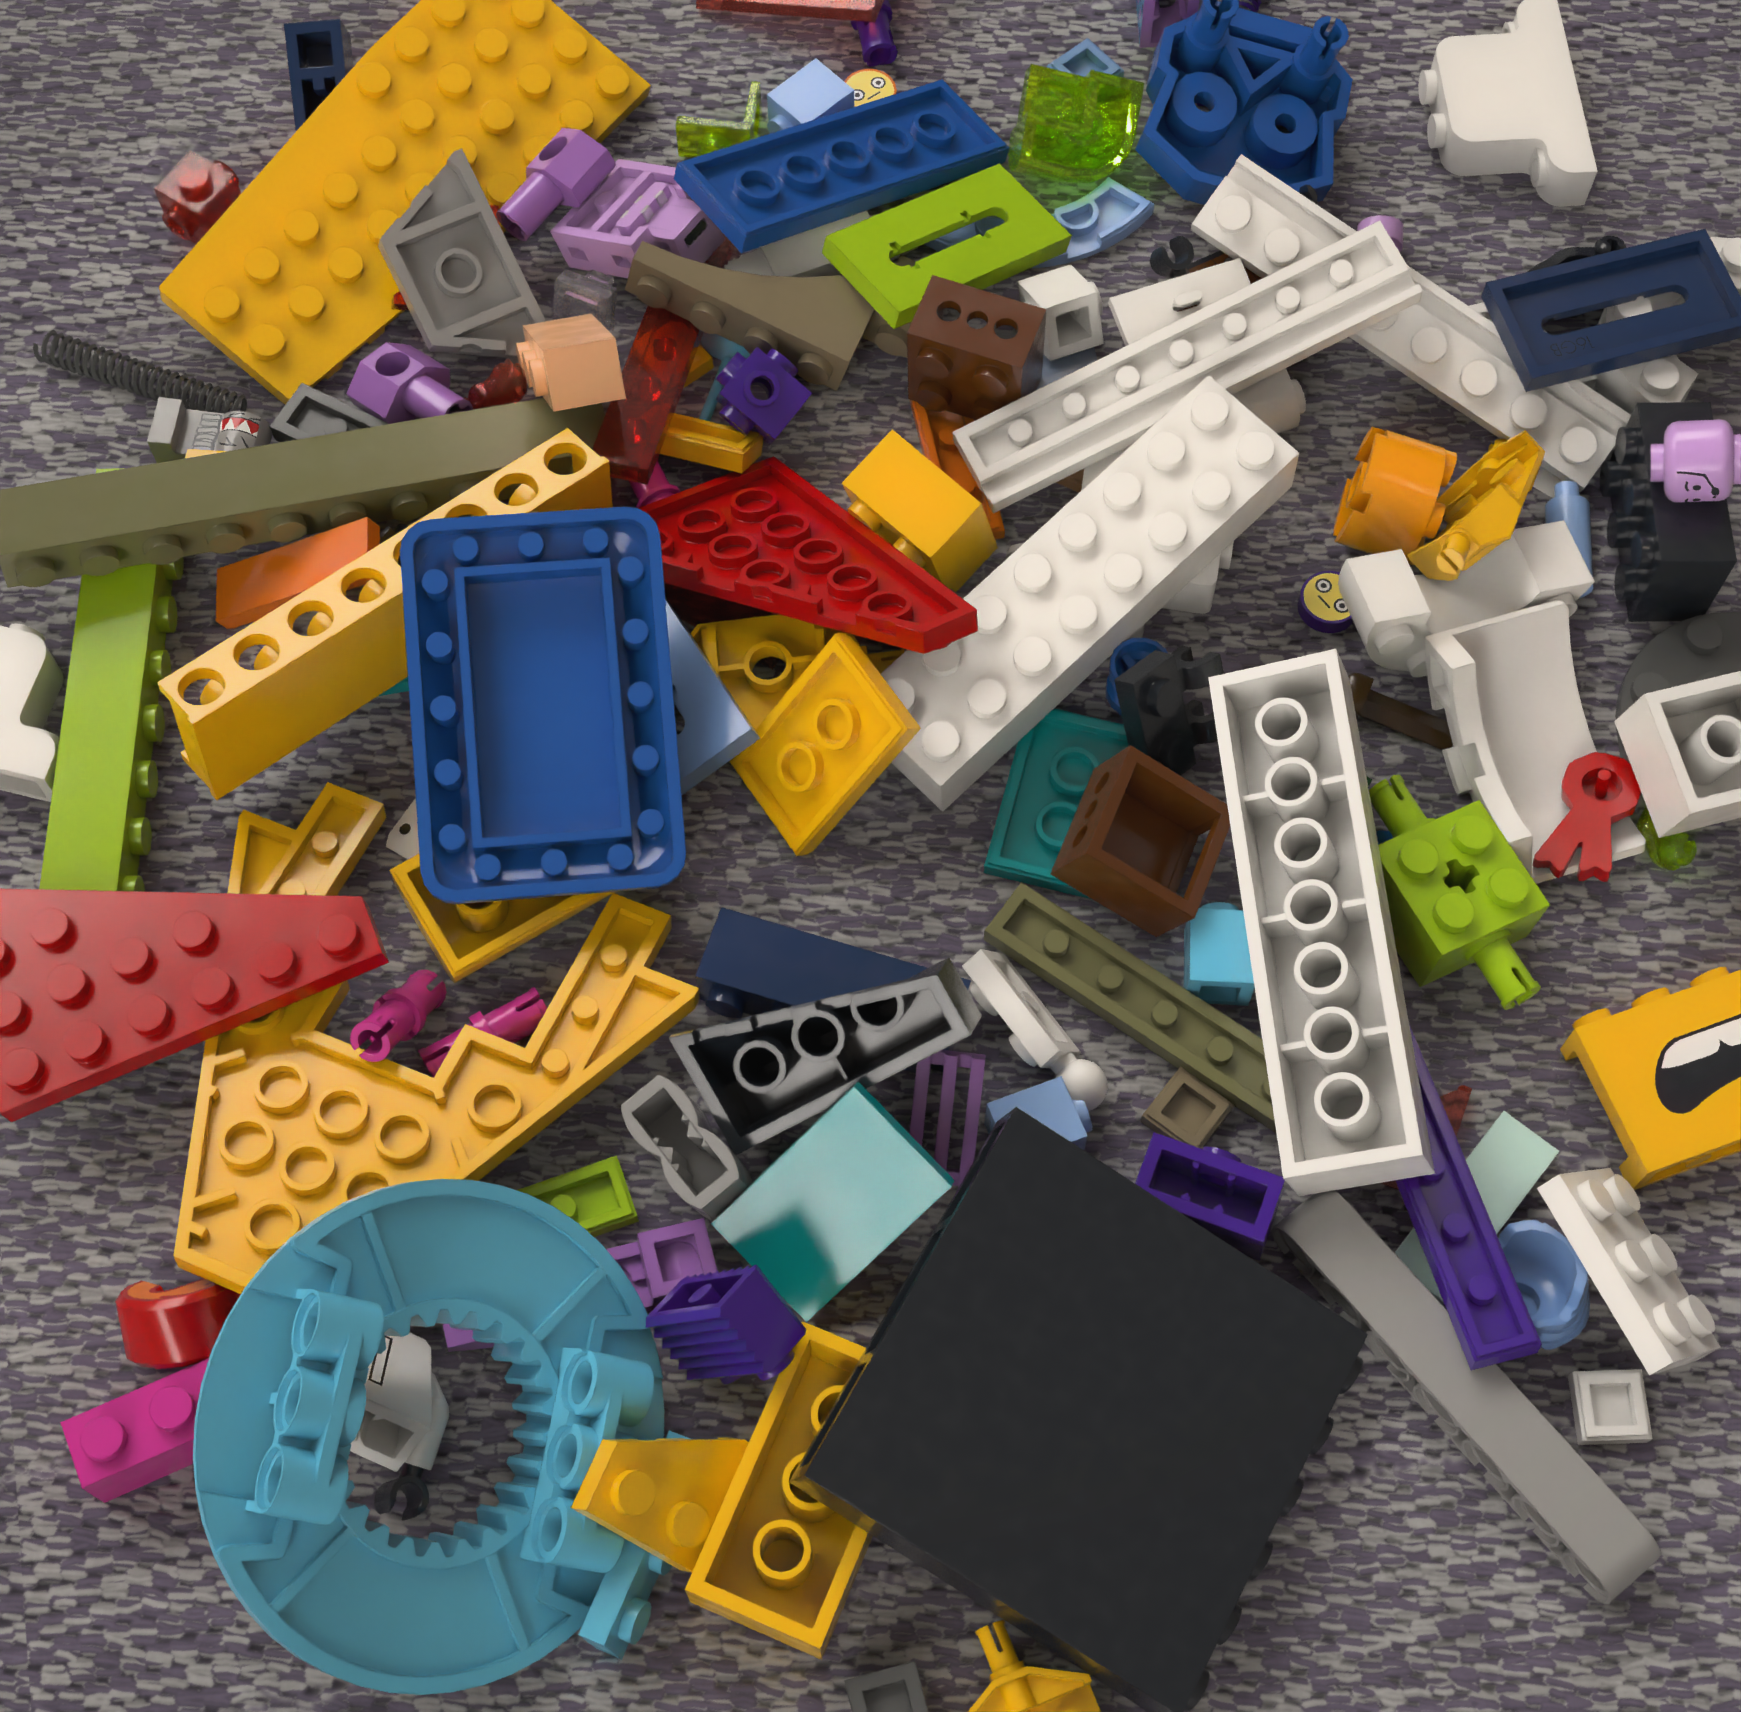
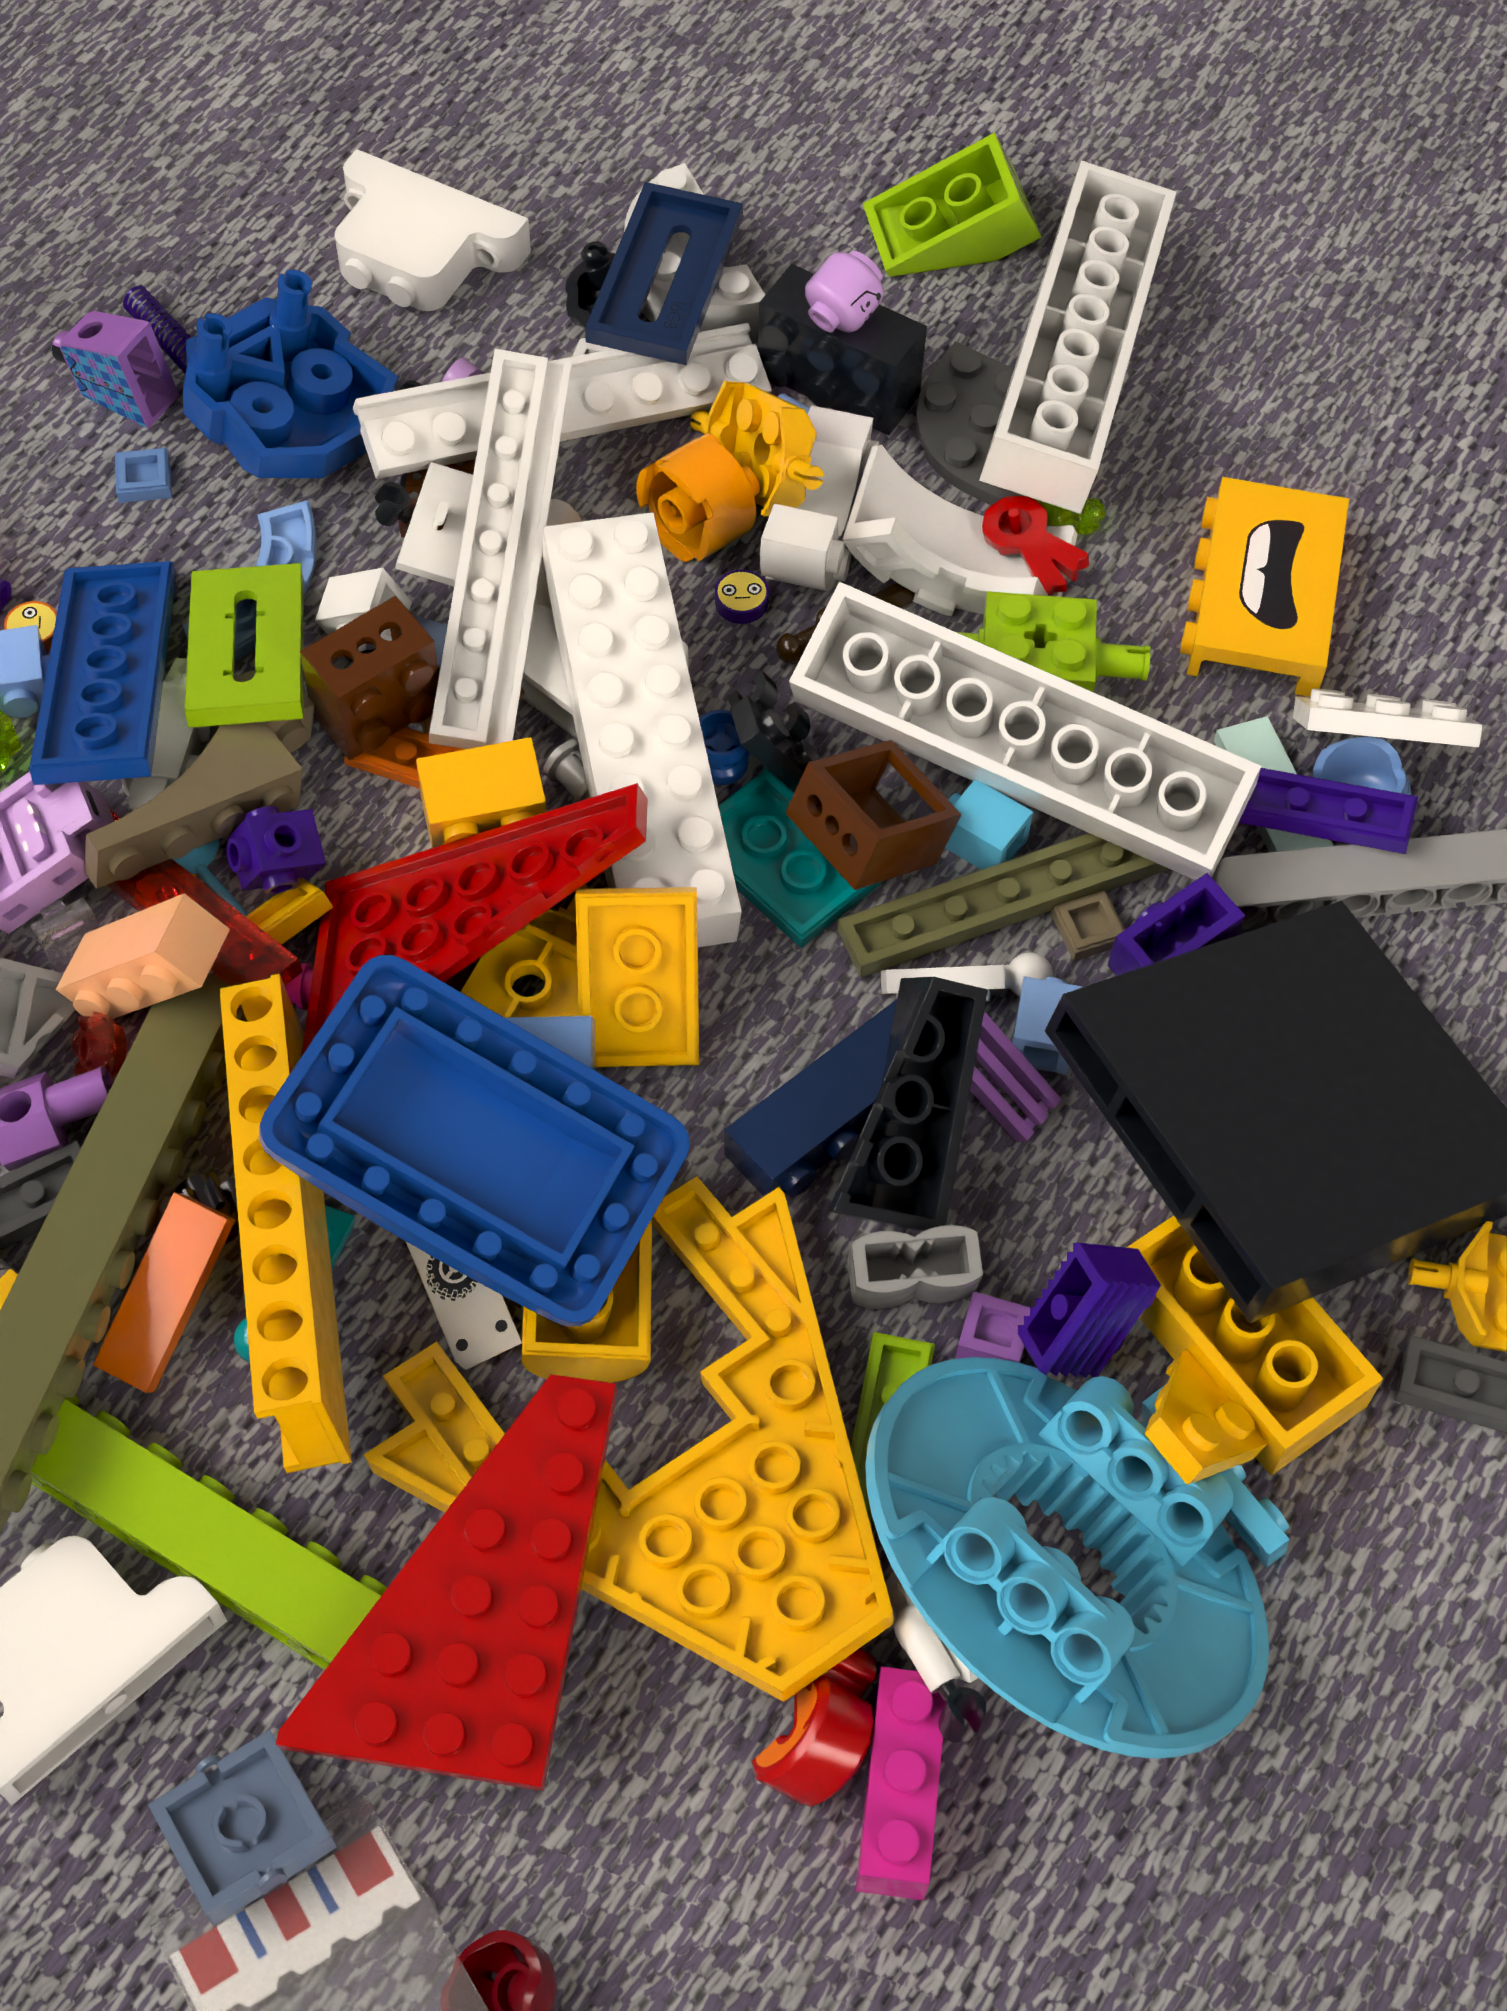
camera: 60 degrees left, 5 degrees down
(398, 1015) = (655, 1423): dark pink pin -> none
(510, 1022) = (699, 1354): dark pink pin -> none
(833, 1201) = (1028, 1180): tile -> none
(1074, 125) = (199, 504): clear neon green brick -> none
(1610, 1407) = (1463, 801): white tile -> none

